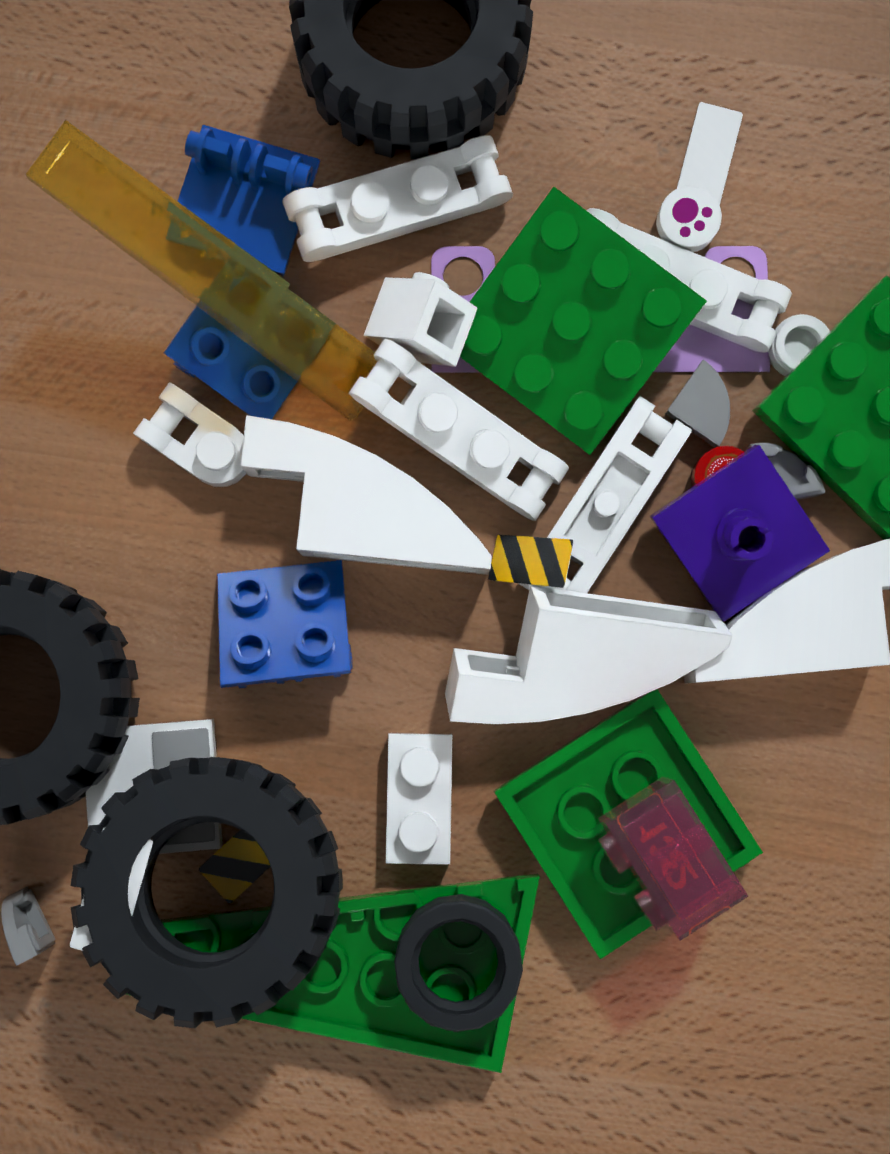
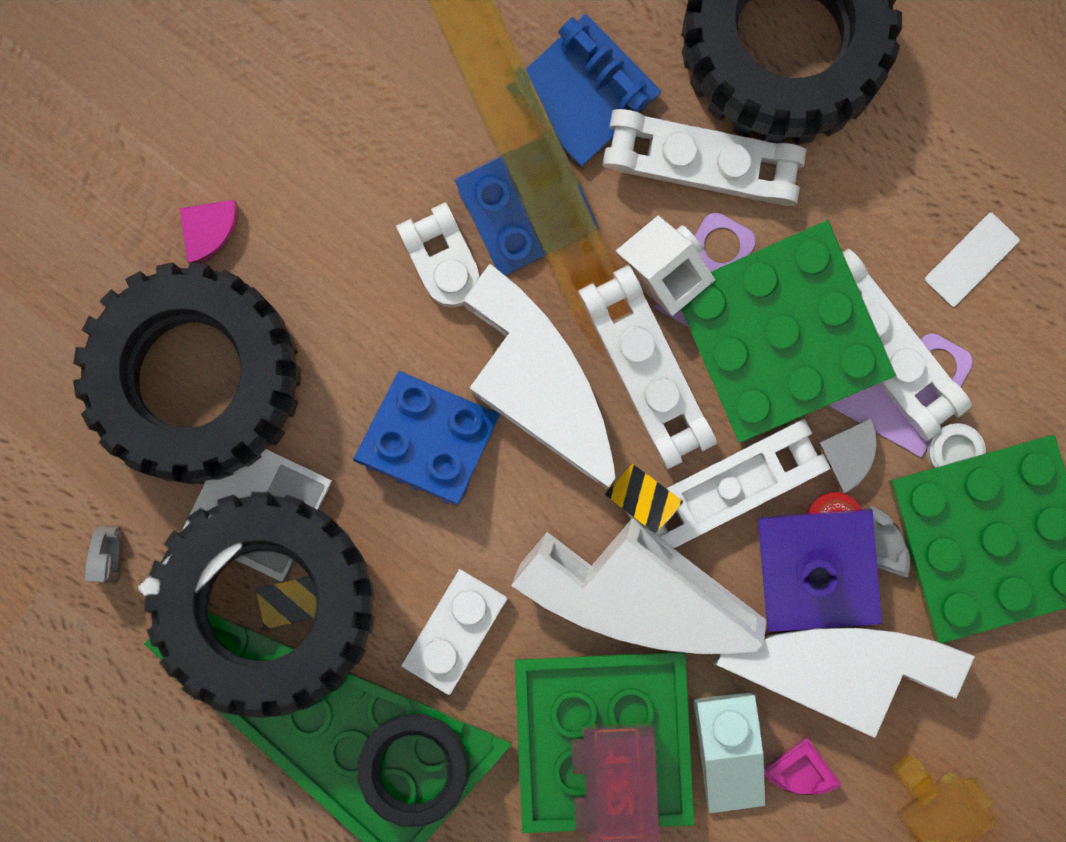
camera: 40 degrees right, 0 degrees up
(689, 218) = (925, 301): white tile -> none
(754, 757) = (730, 751): none -> light aqua slope
(832, 737) = (801, 771): none -> dark pink tile

